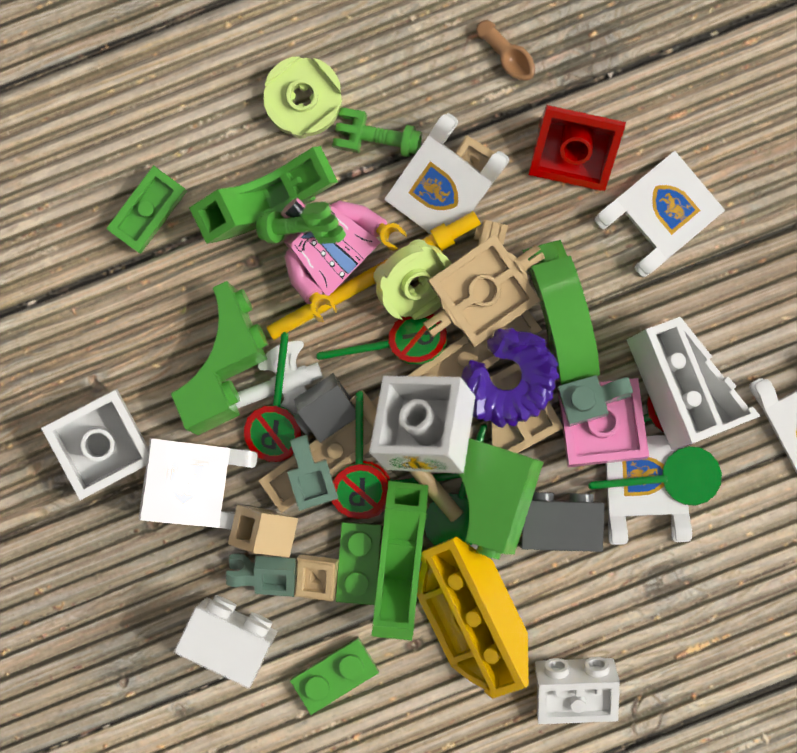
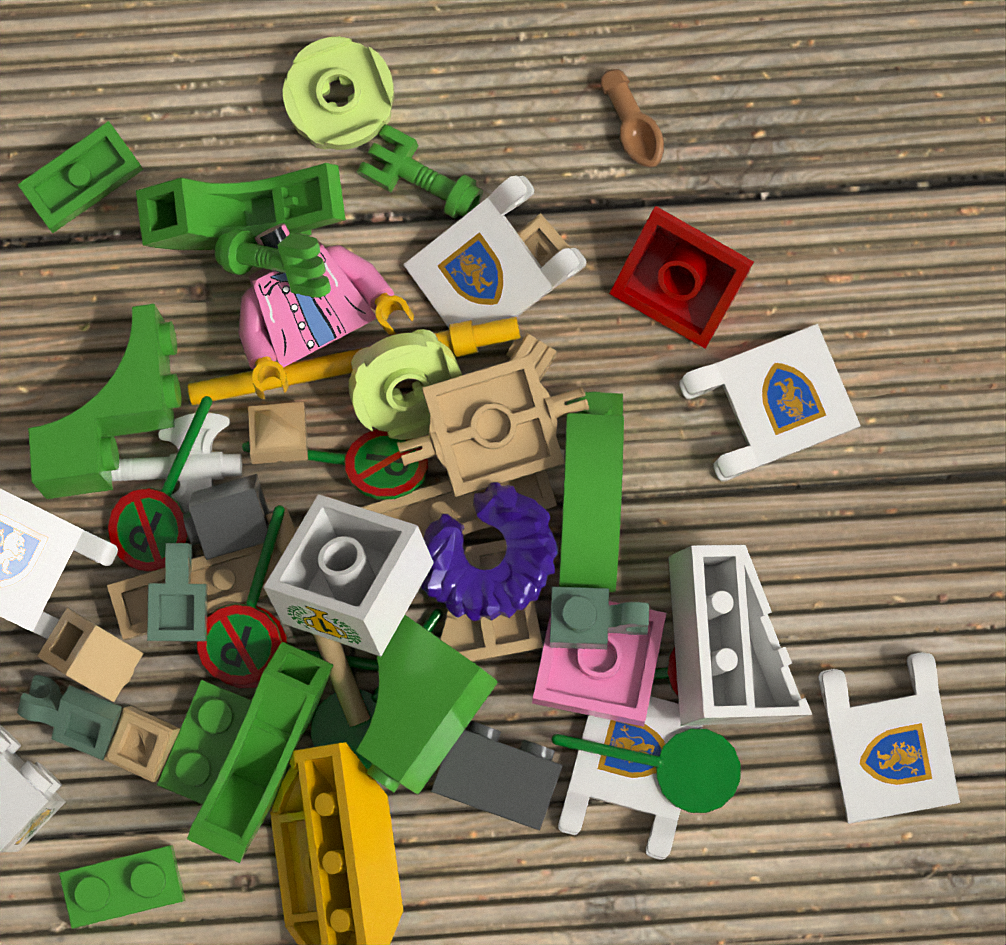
camera: 20 degrees right, 5 degrees down
(338, 340) = (277, 433): none -> tan tile

